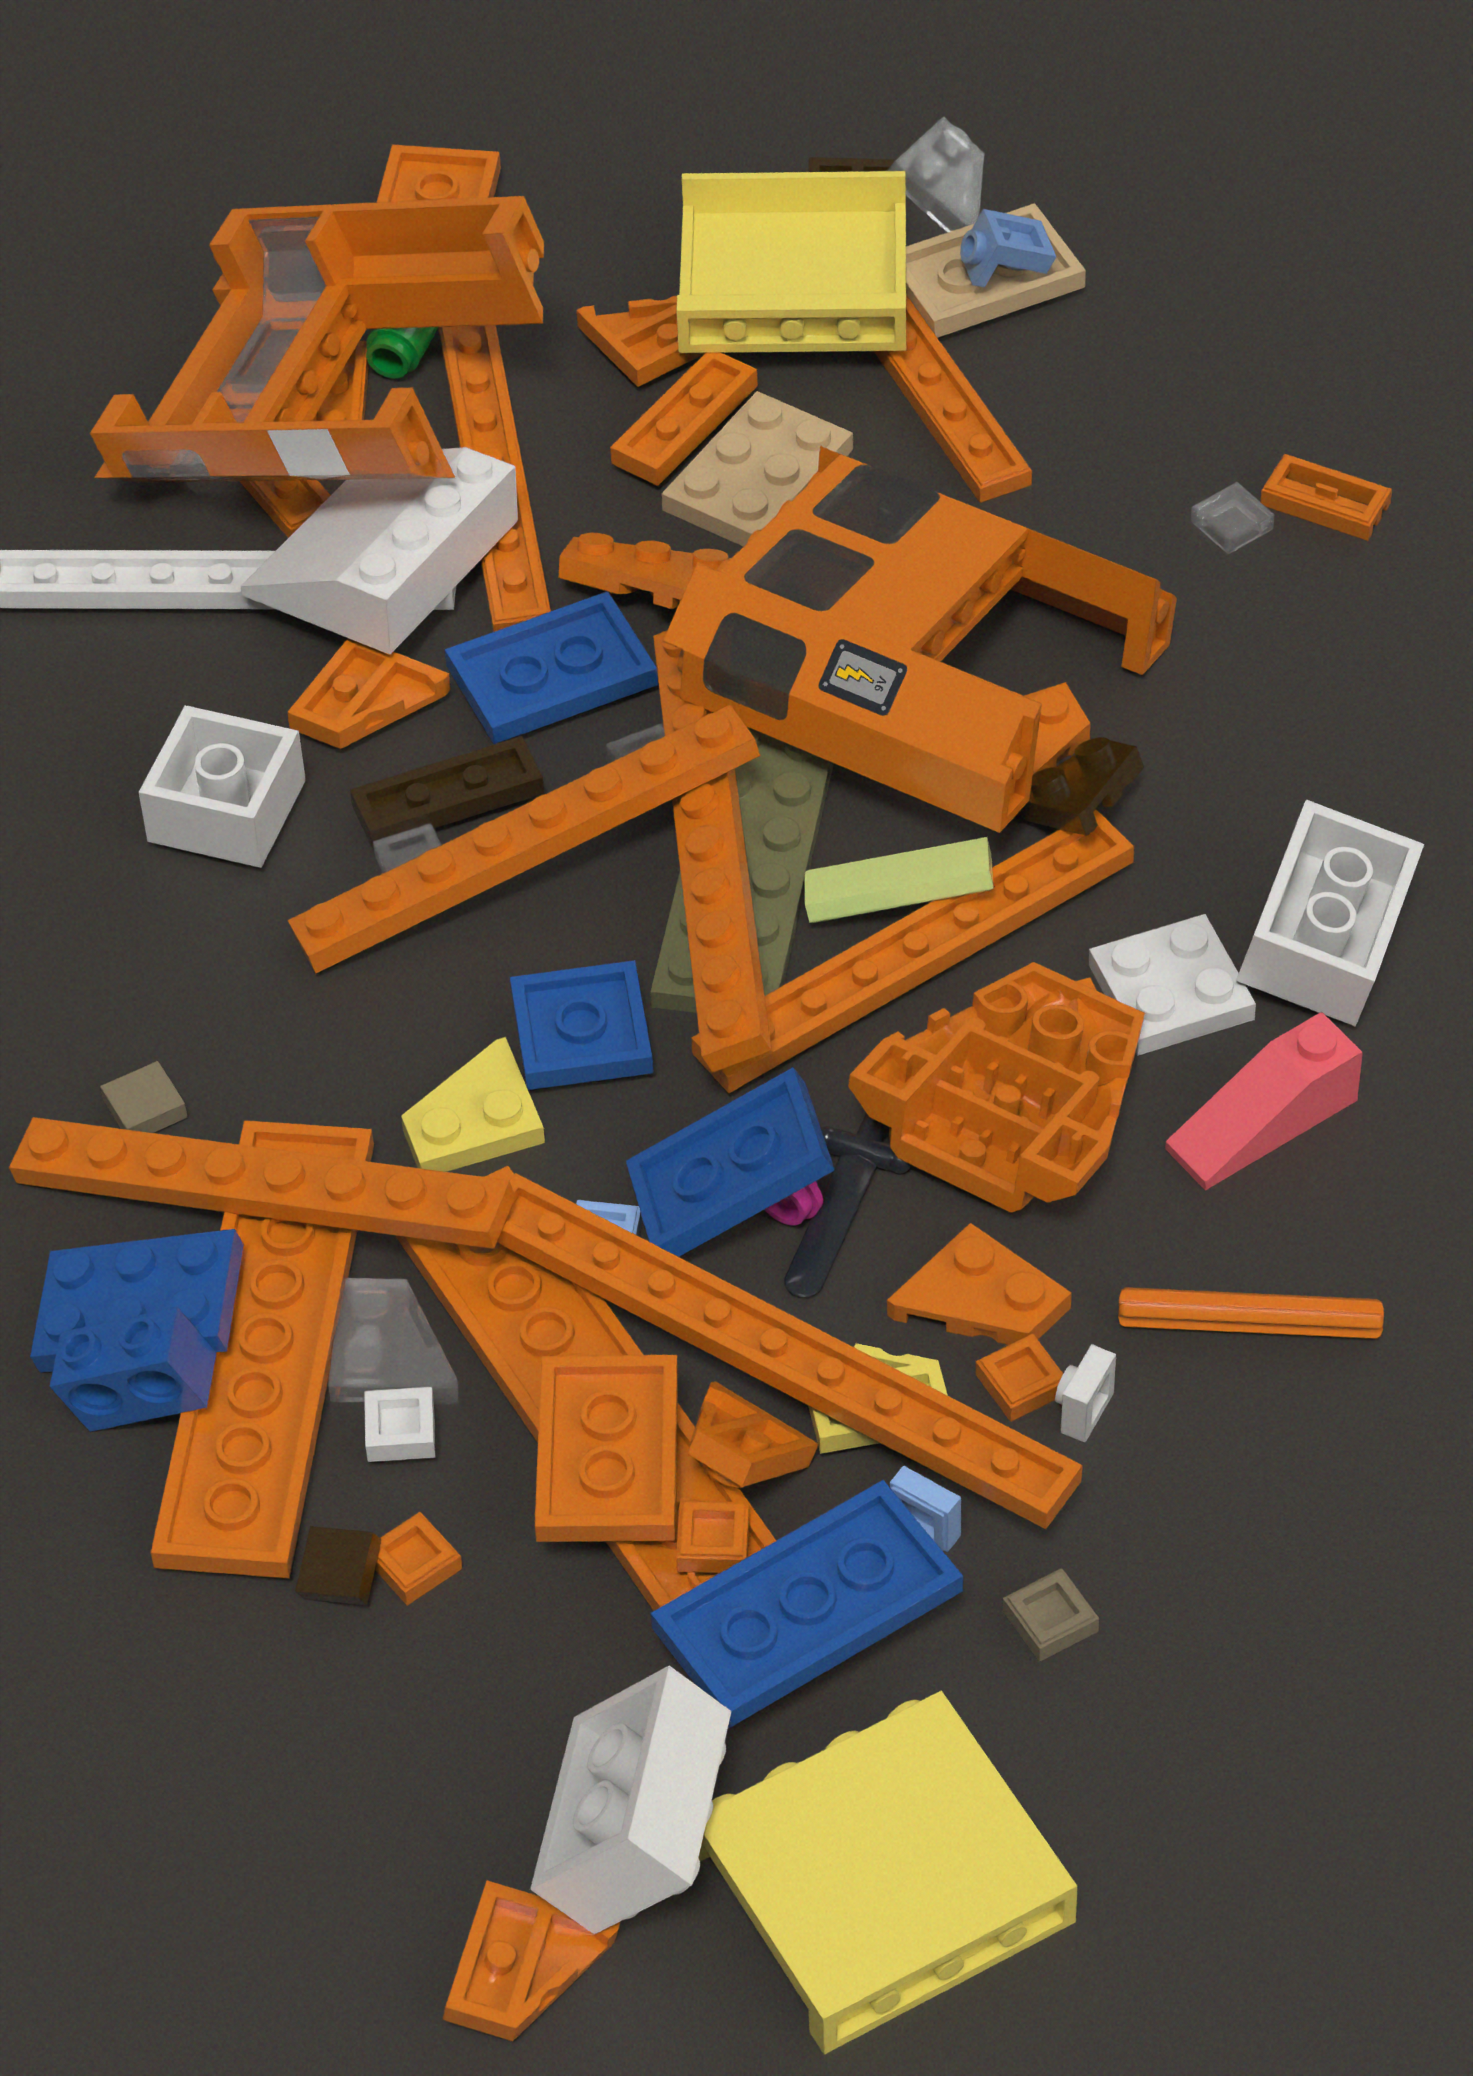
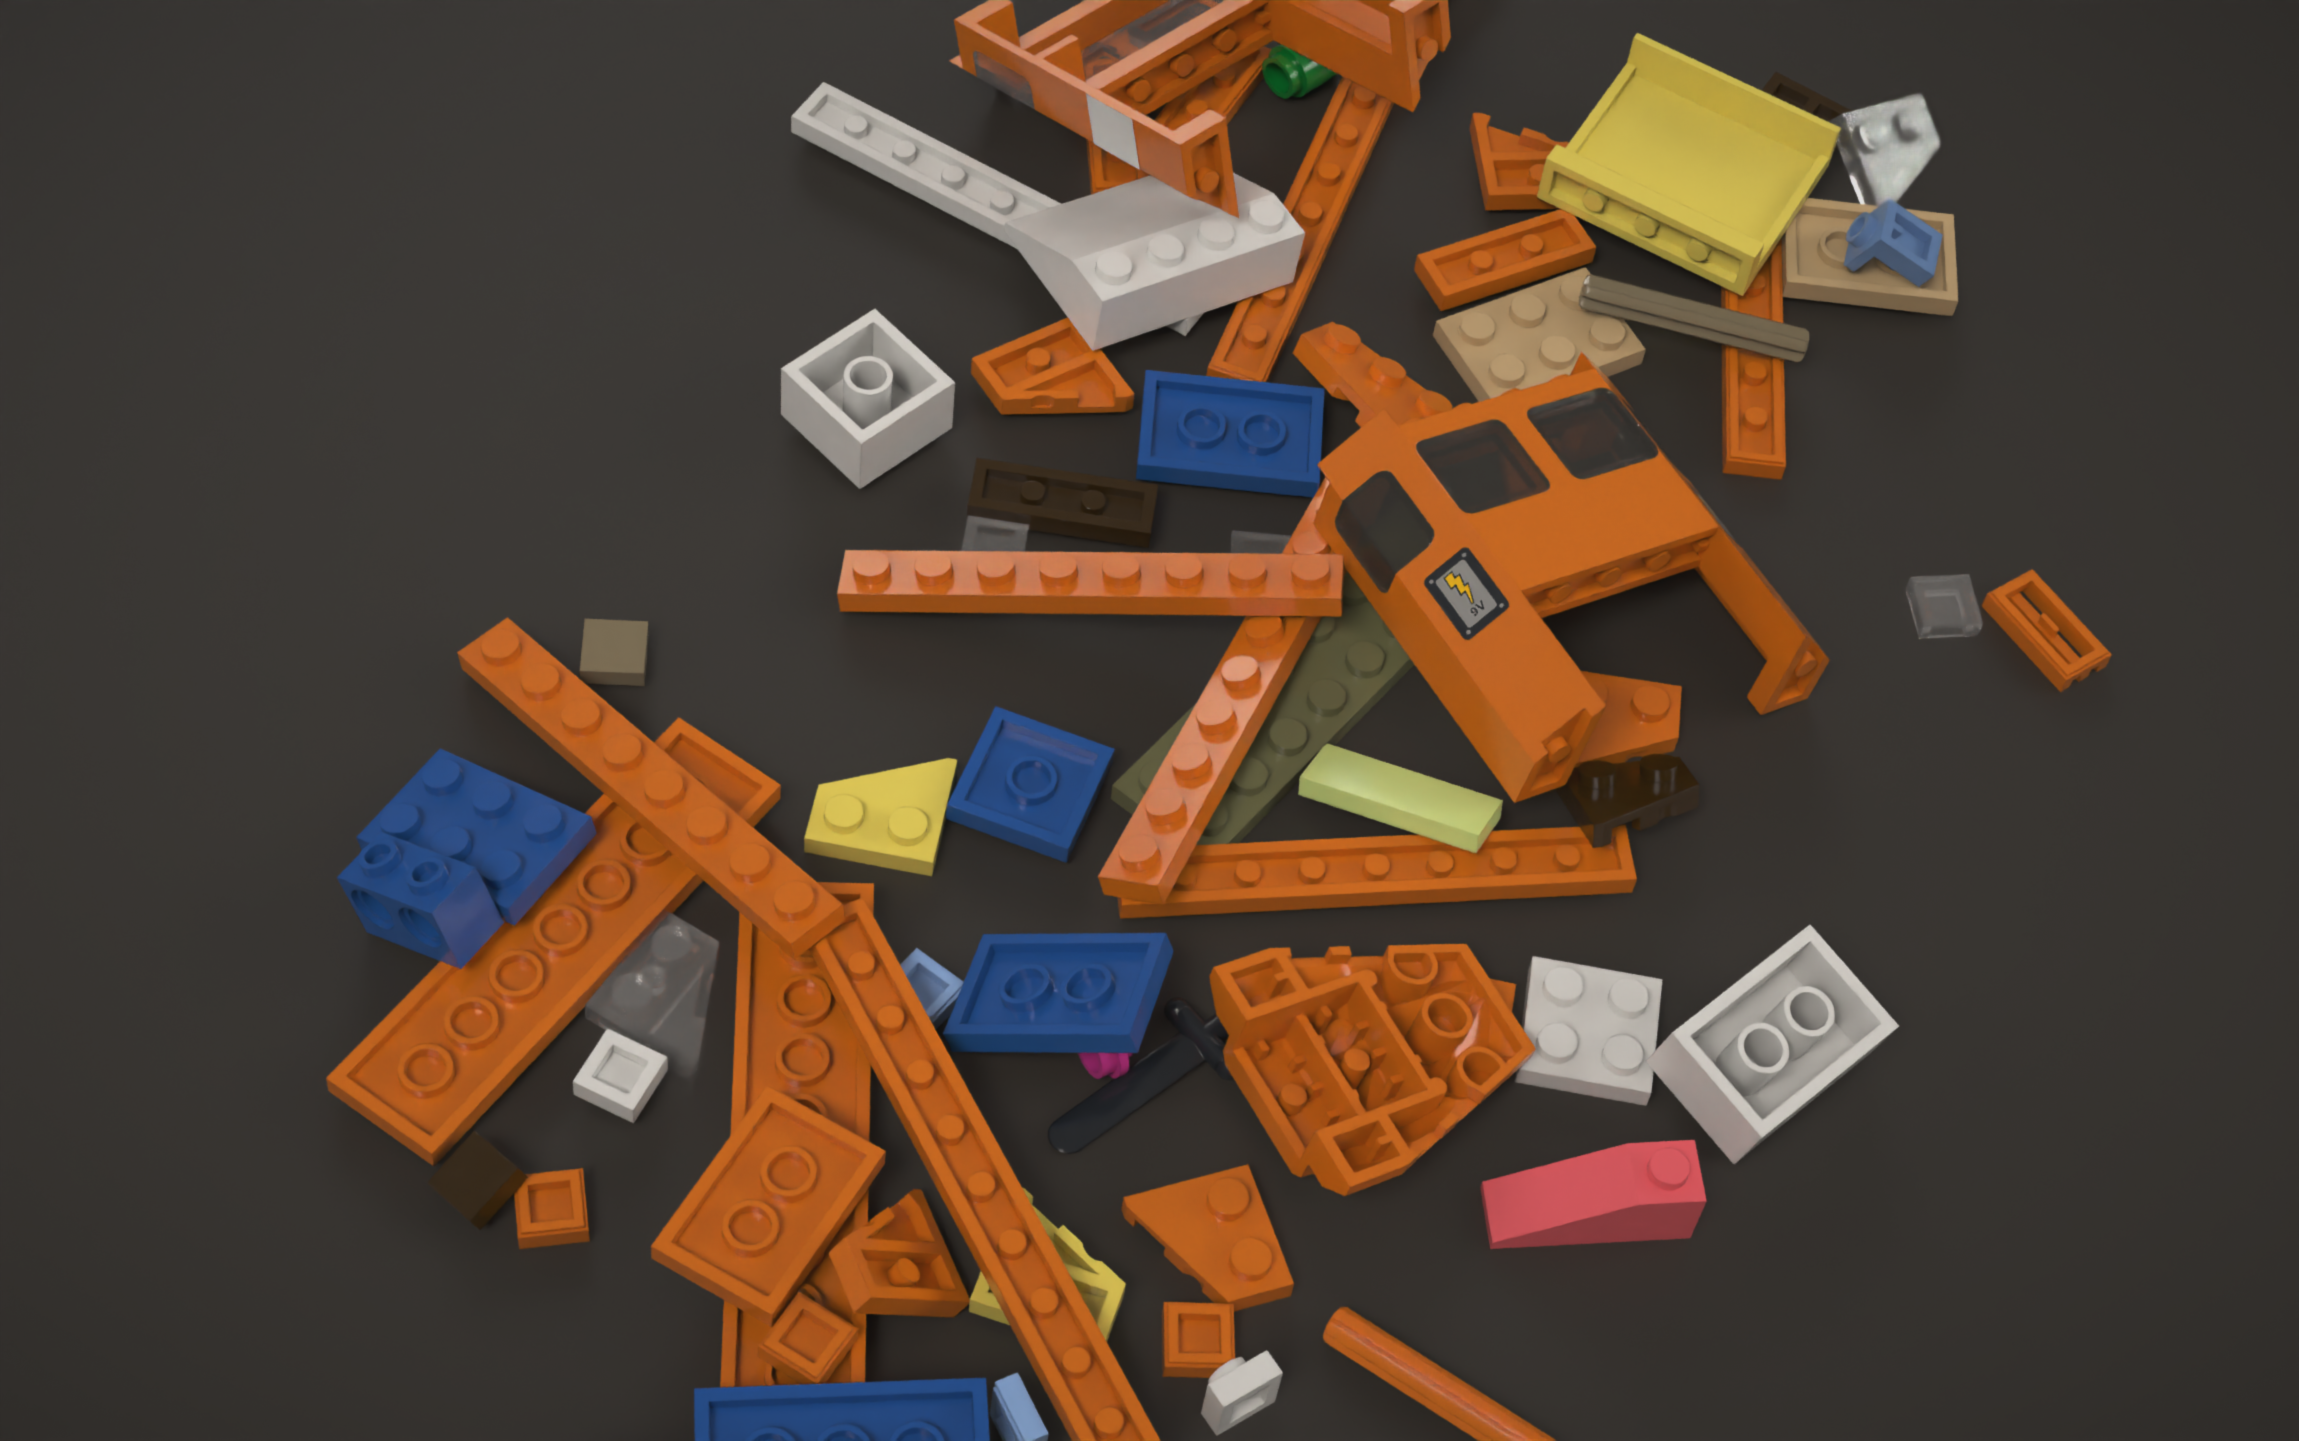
camera: 20 degrees right, 5 degrees up
(879, 386) = (1694, 318): none -> dark tan axle

